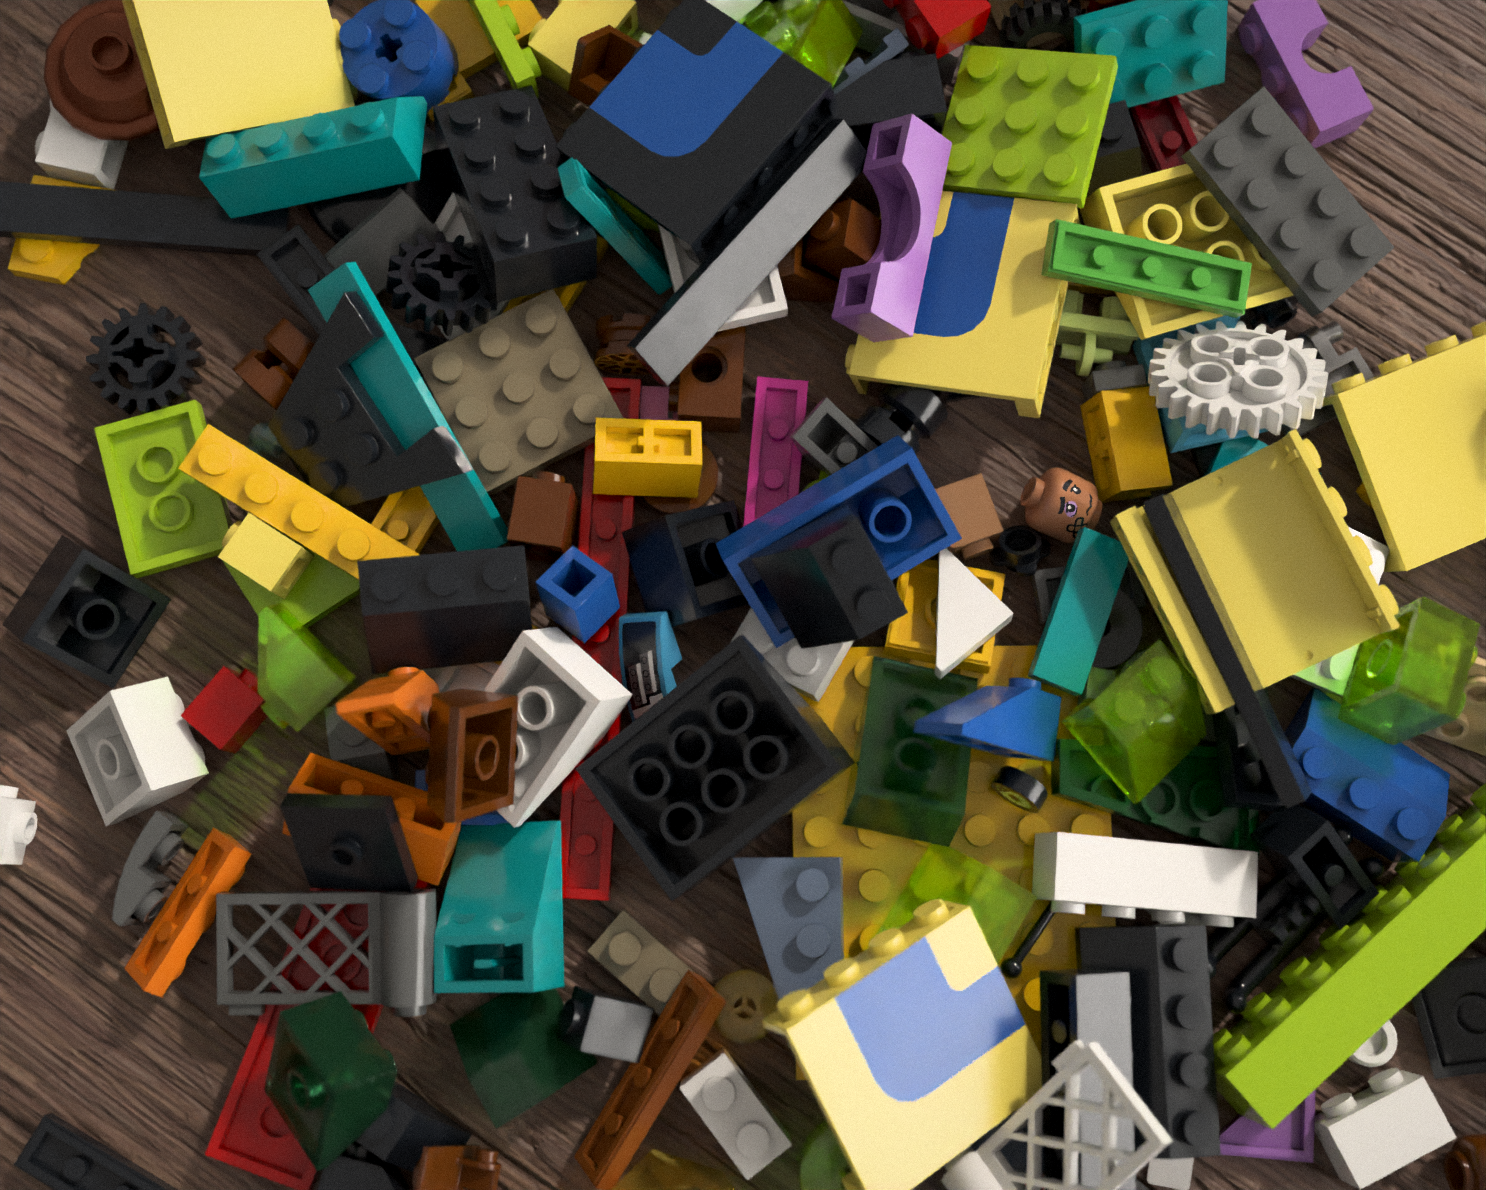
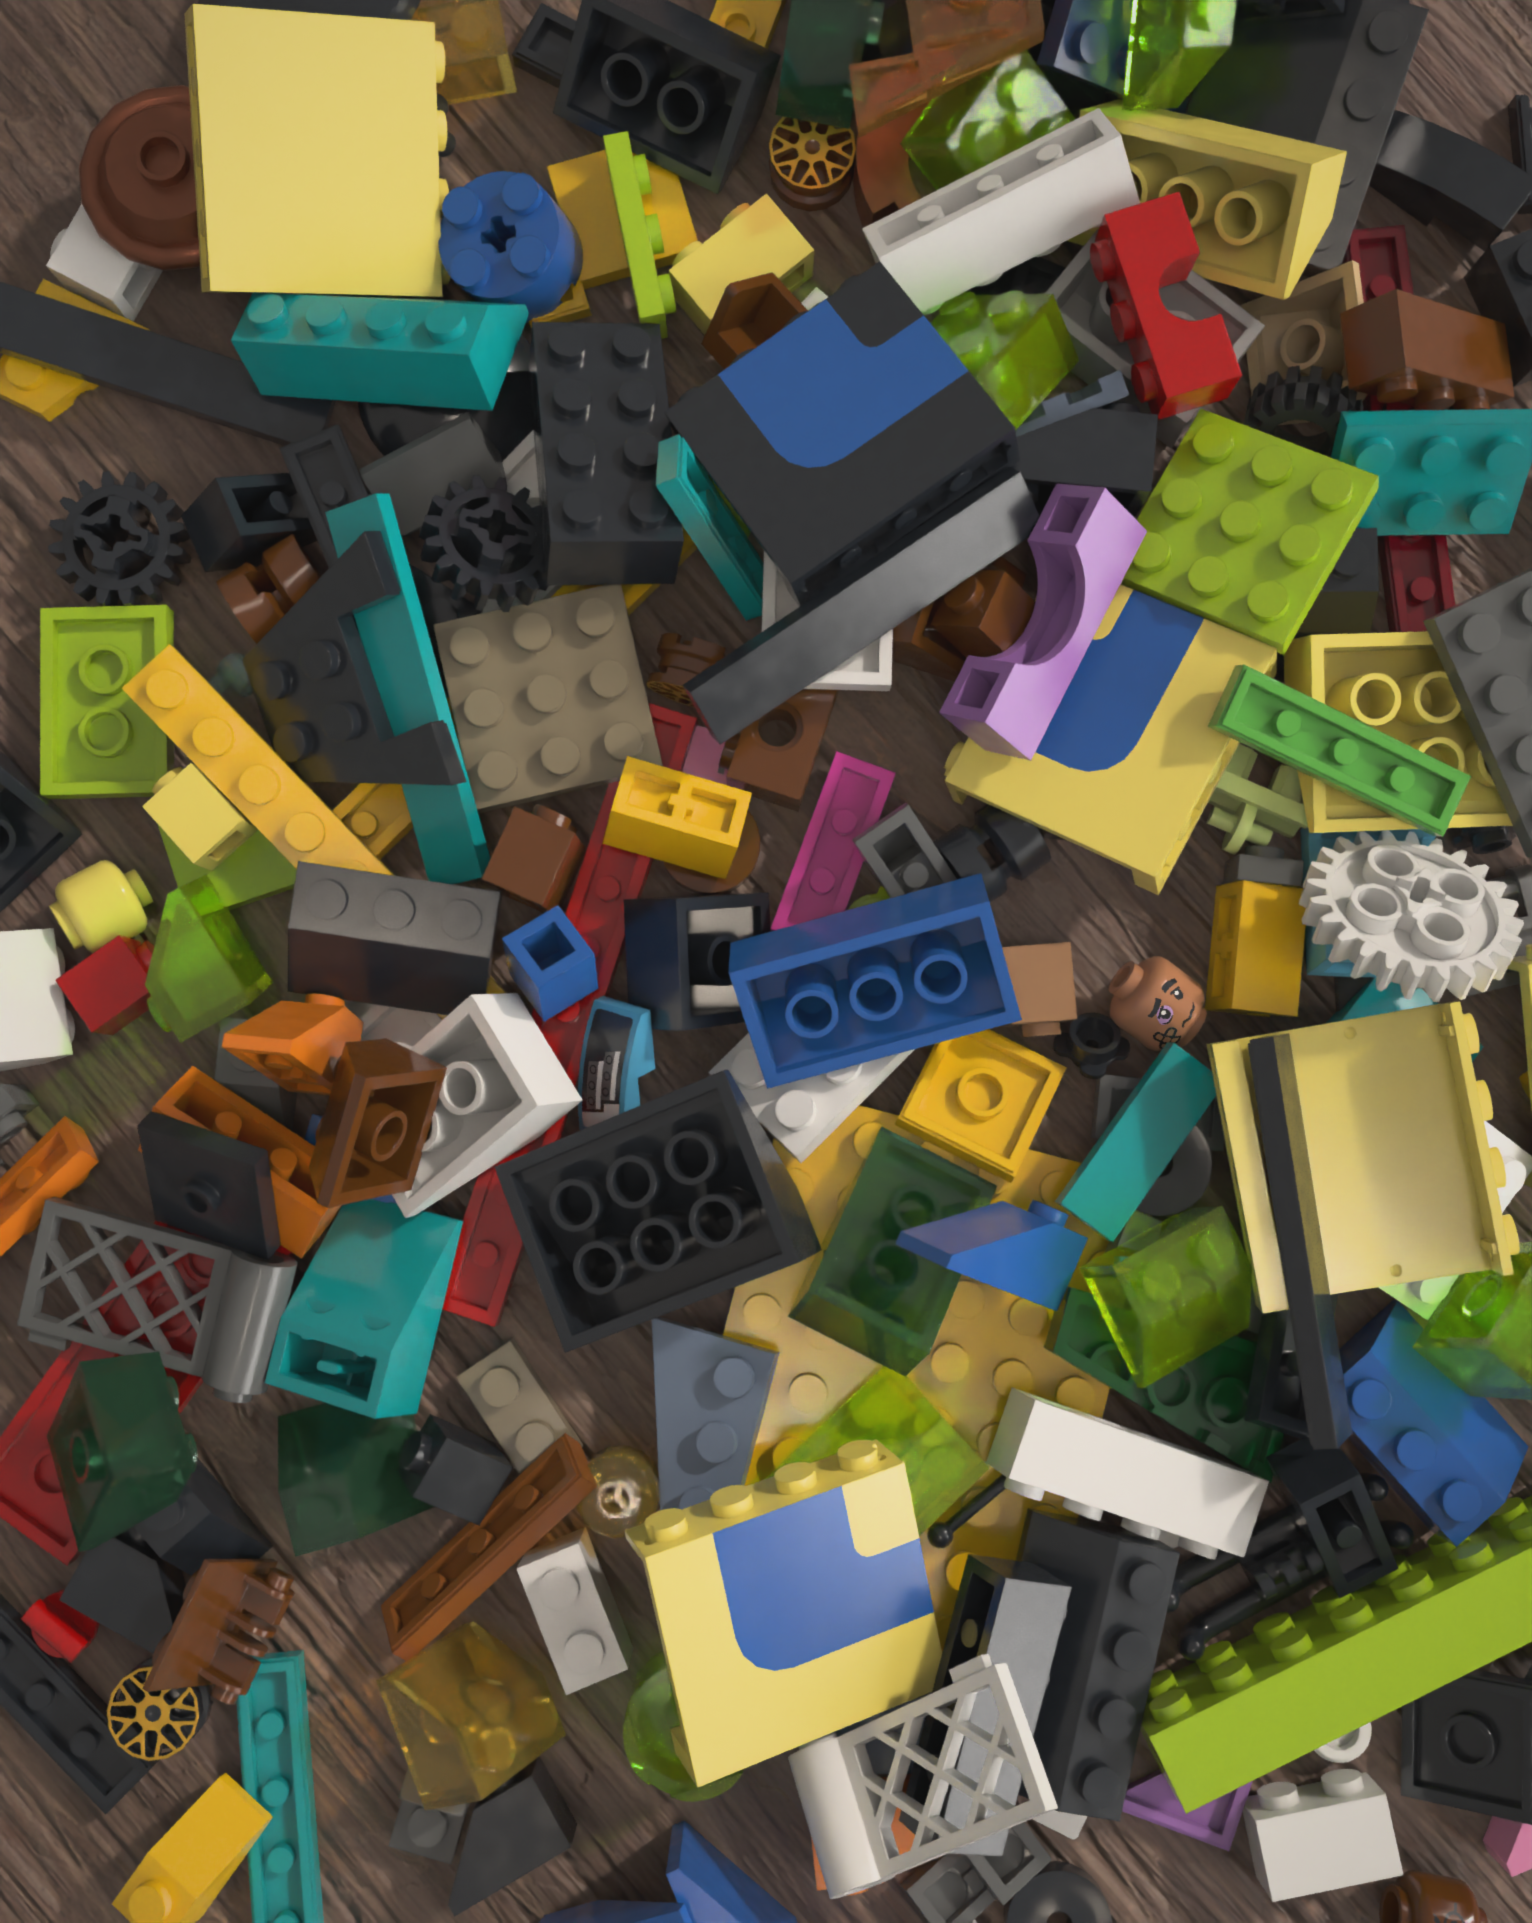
camera: 20 degrees right, 5 degrees up
(200, 649) = (100, 905): none -> light yellow head
(241, 315) = (243, 518): none -> black slope
(829, 581) = (848, 1032): black slope -> none
(964, 613) = (1002, 1108): white tile -> none
(1019, 789) = (1008, 1331): black tile -> none

